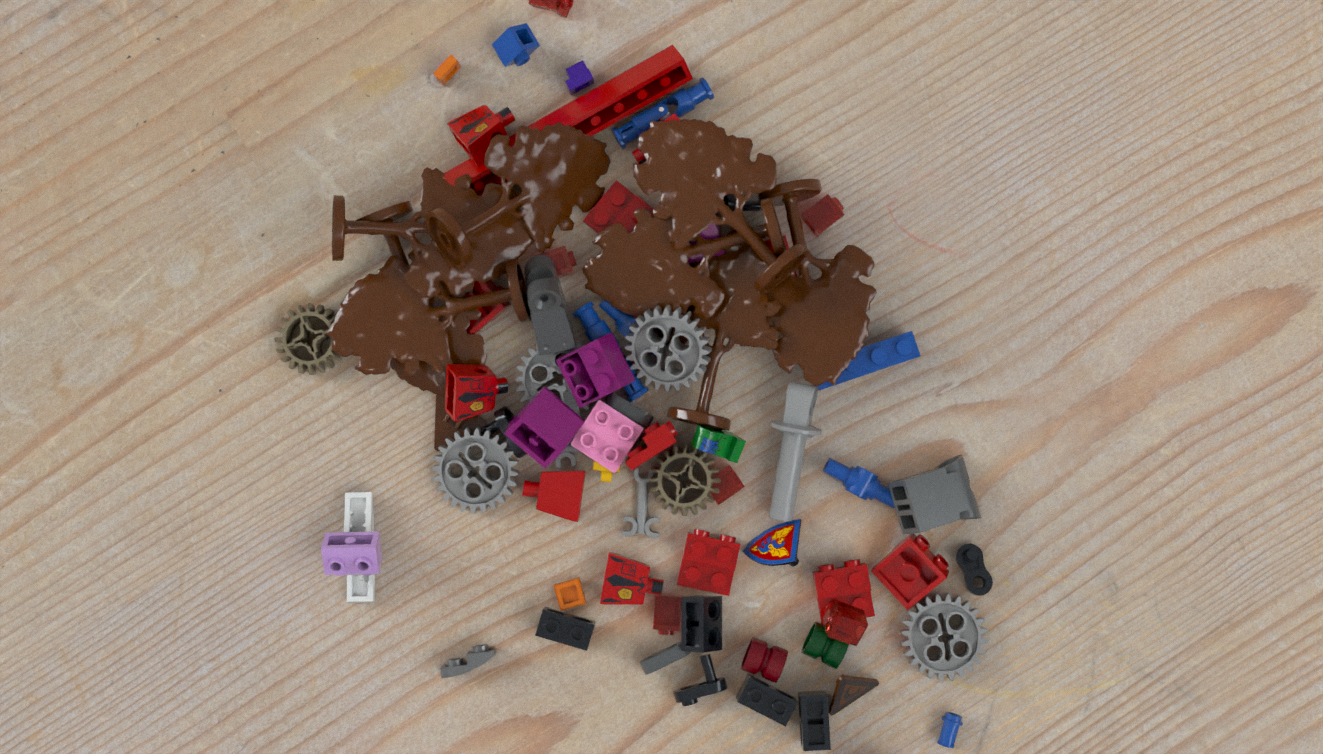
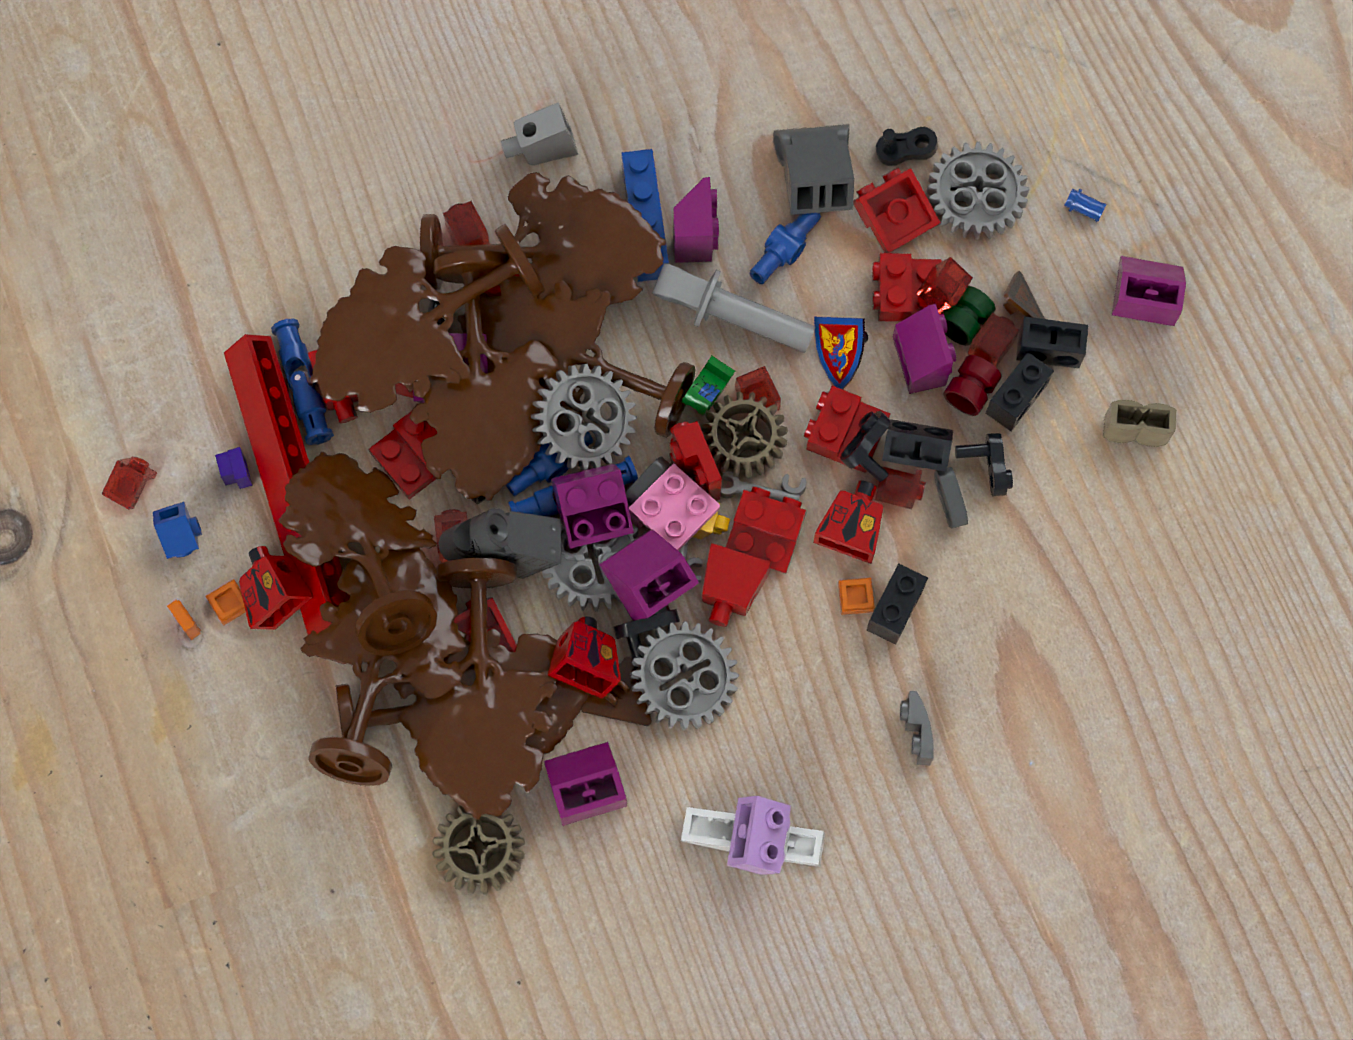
camera: 80 degrees left, 15 degrees down
(375, 409) = (585, 783): none -> magenta slope
(469, 98) = (227, 602): none -> orange tile
(608, 512) = (767, 527): none -> red plate
(686, 576) = (871, 429): none -> black piece
(785, 615) = (924, 350): none -> magenta slope
(809, 672) = (994, 339): none -> clear red brick
(860, 403) = (696, 224): none -> magenta slope
(918, 270) = (542, 136): none -> light grey torso

